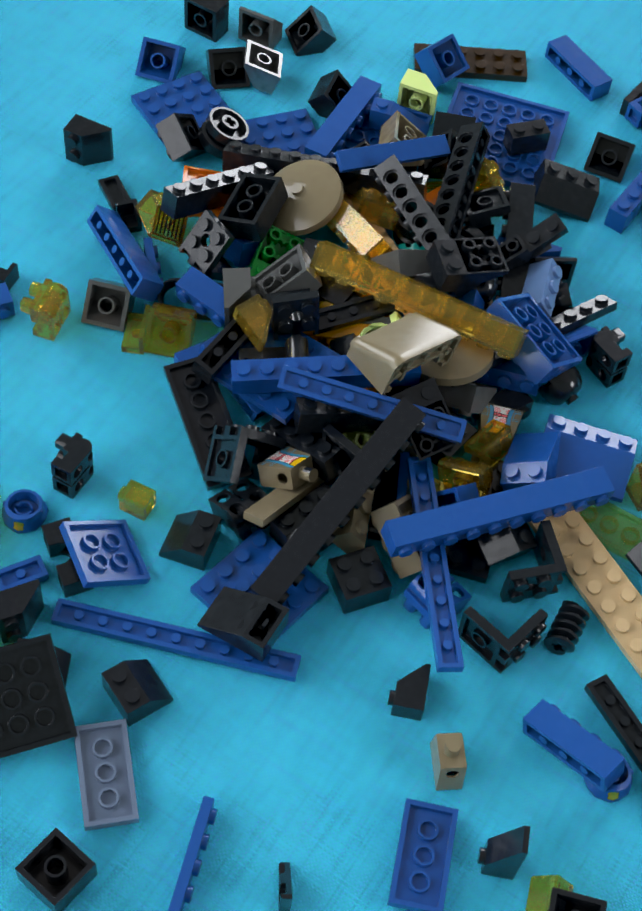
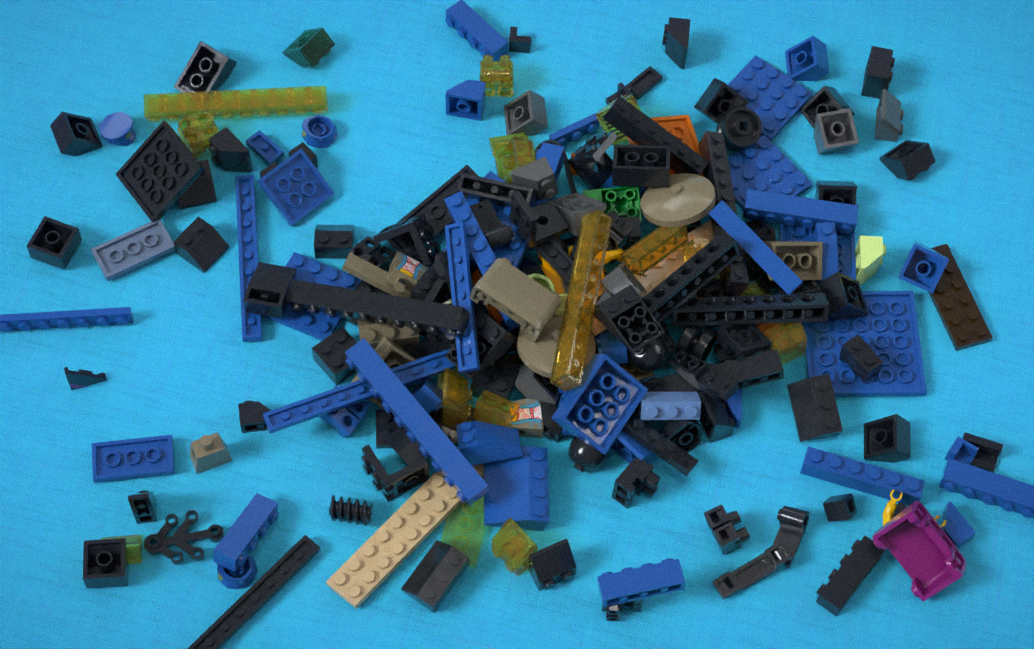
camera: 75 degrees right, 5 degrees up
(68, 341) = (467, 100): none -> blue slope
(72, 464) = (362, 144): black hips -> none
(125, 253) = (569, 105): blue brick -> none
(137, 499) = (353, 194): clear yellow brick -> none
(254, 319) = (503, 196): clear yellow slope -> none
(493, 645) = (316, 473): black bracket -> none
(552, 830) = (180, 538): none -> black plant
(578, 68) = (994, 387): blue brick -> none

